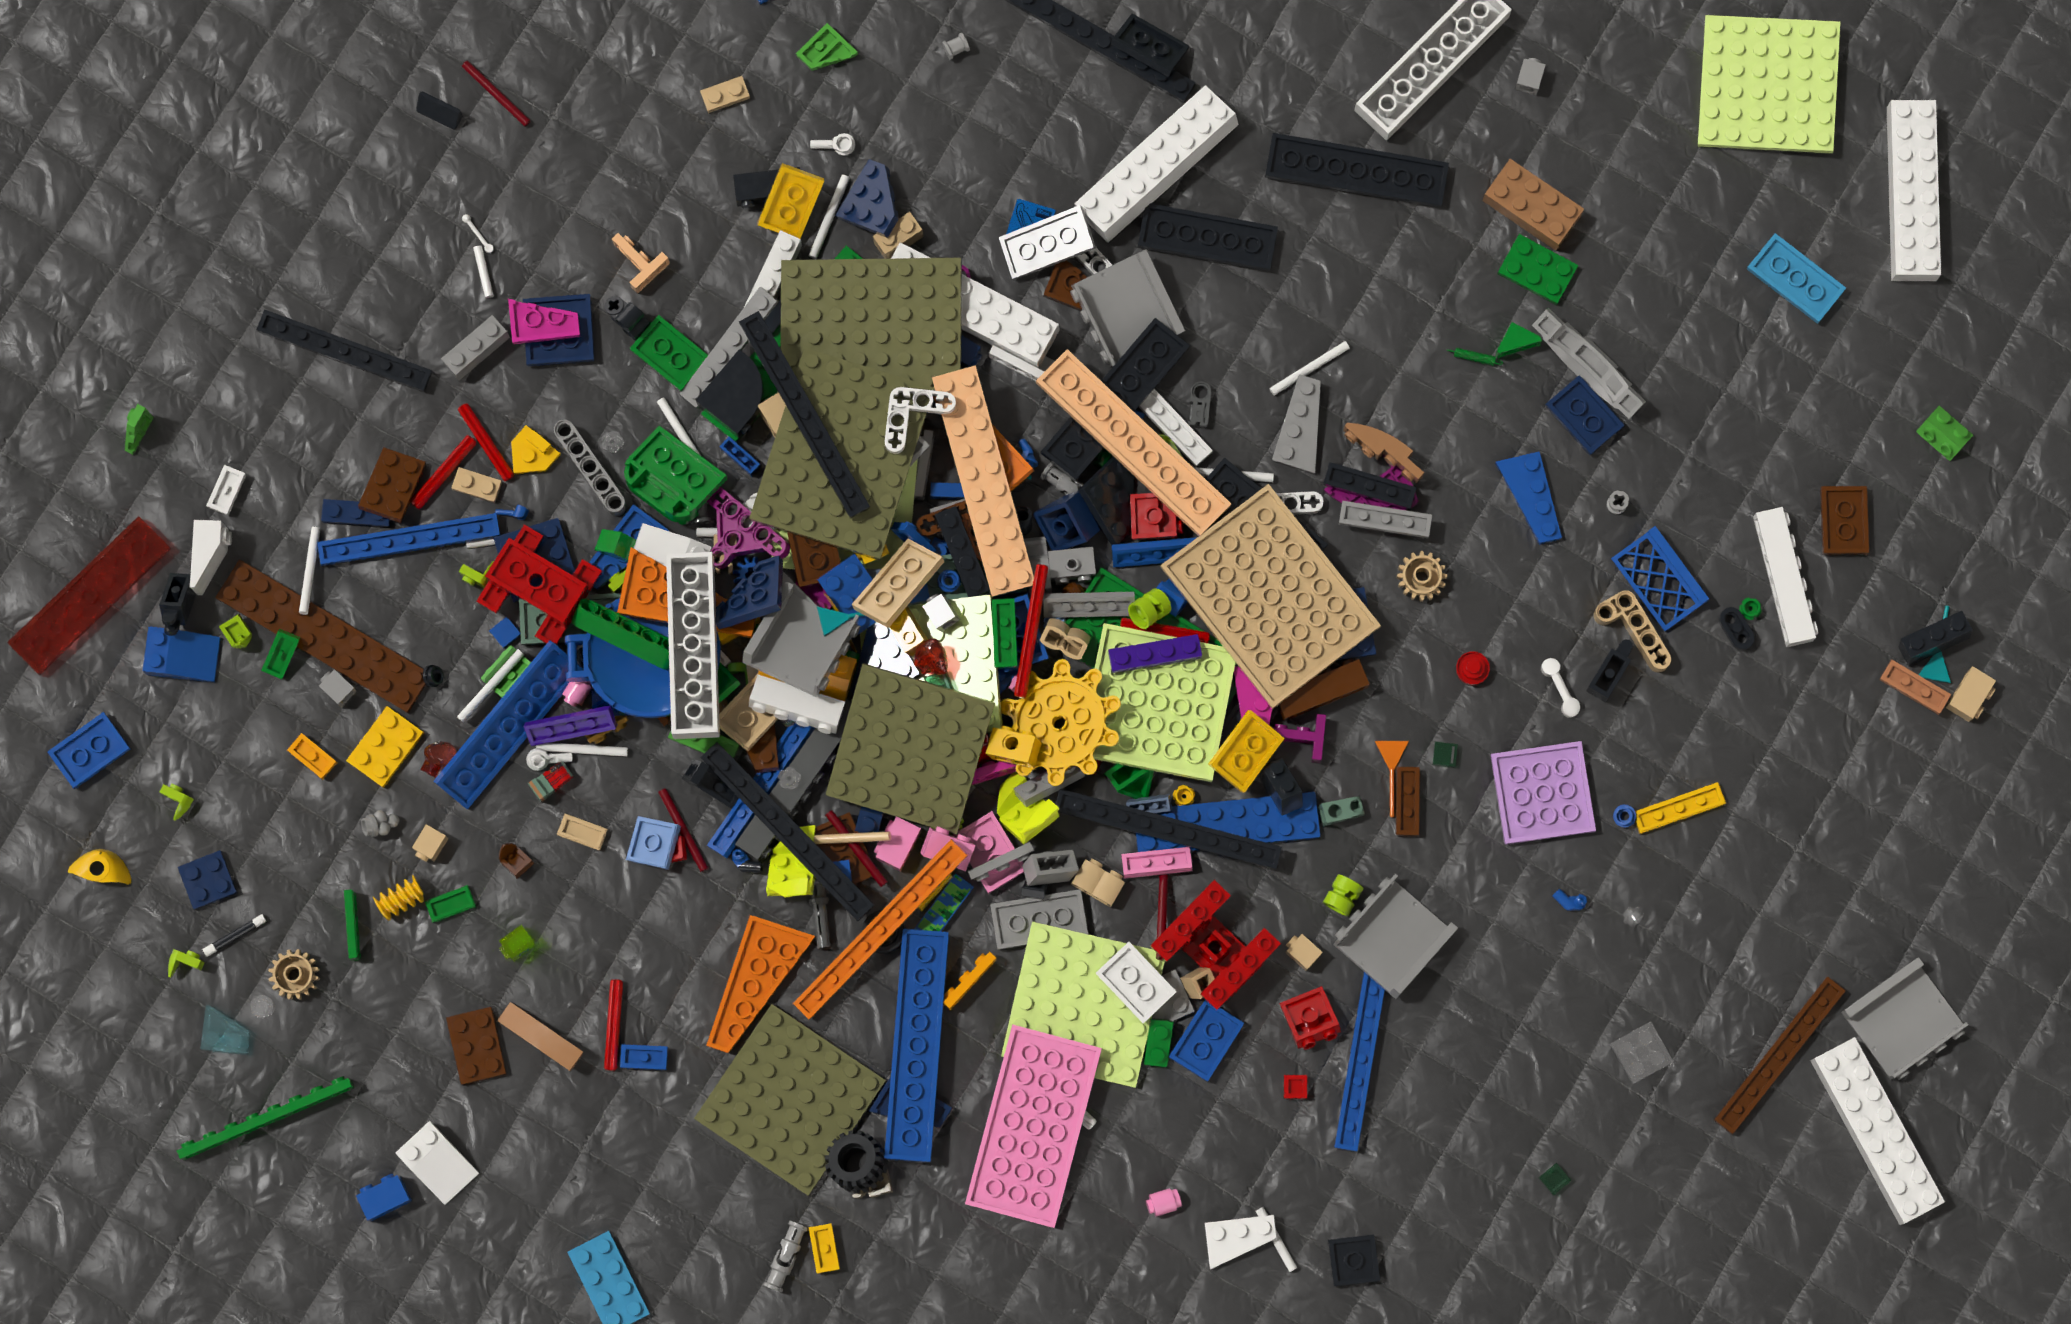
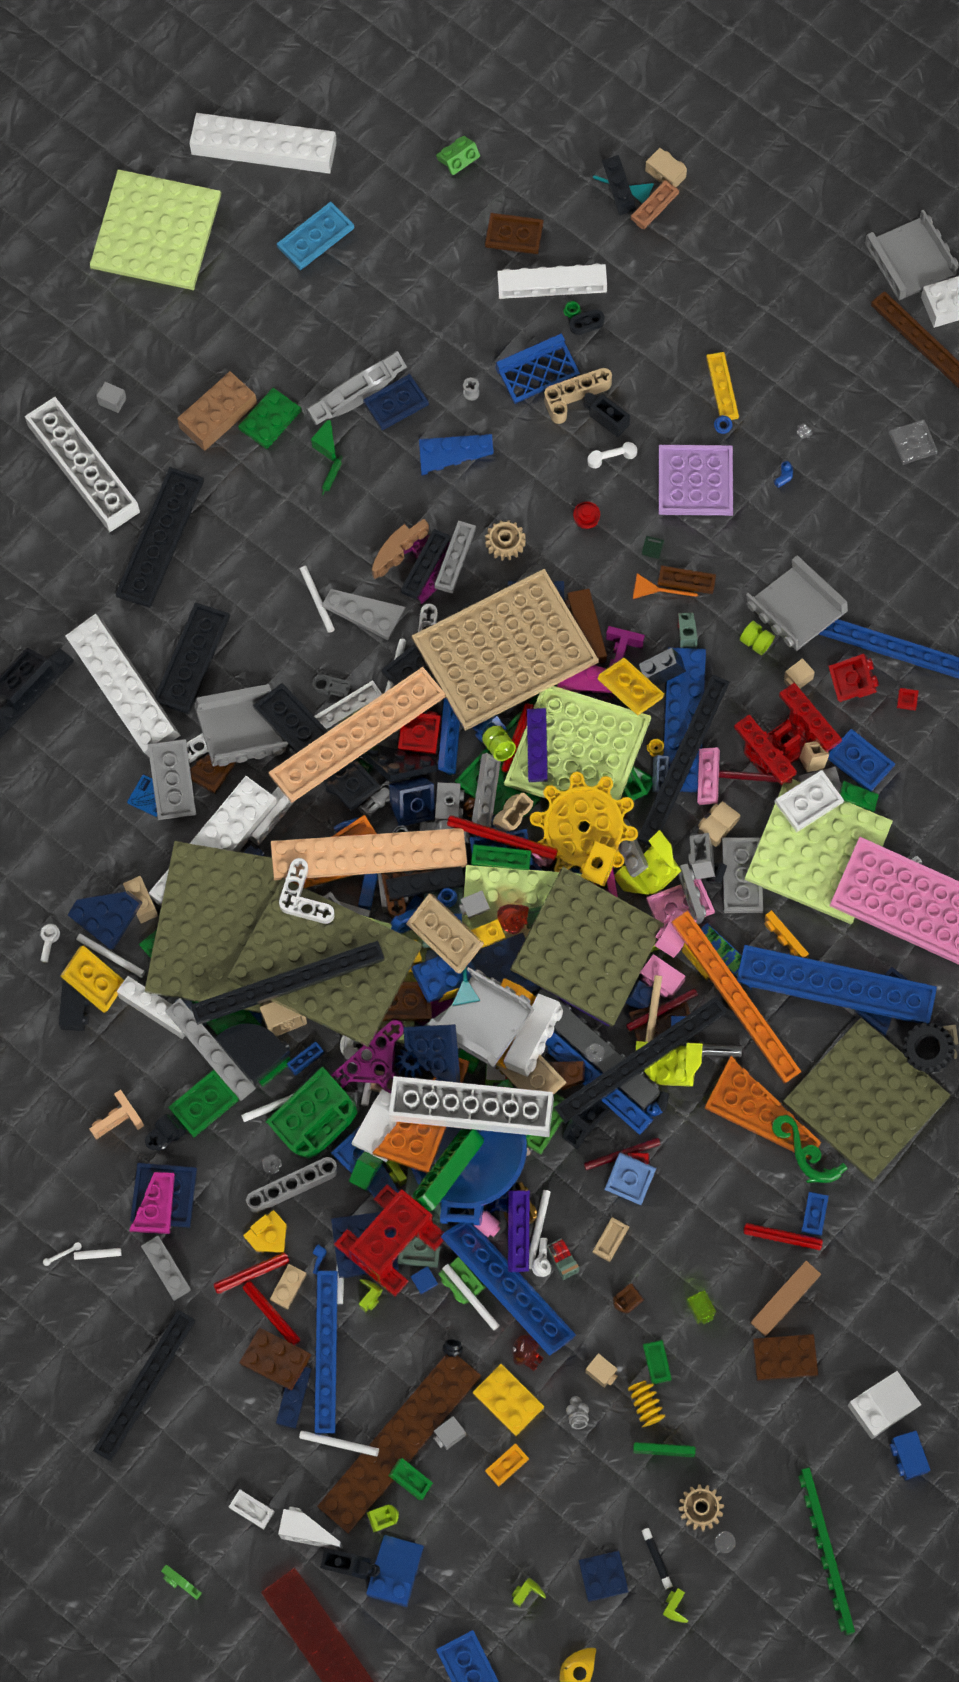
camera: 80 degrees left, 10 degrees down
(223, 1034) = (744, 1580): clear light blue wing -> none
(685, 1050) = (800, 1154): none -> green plant

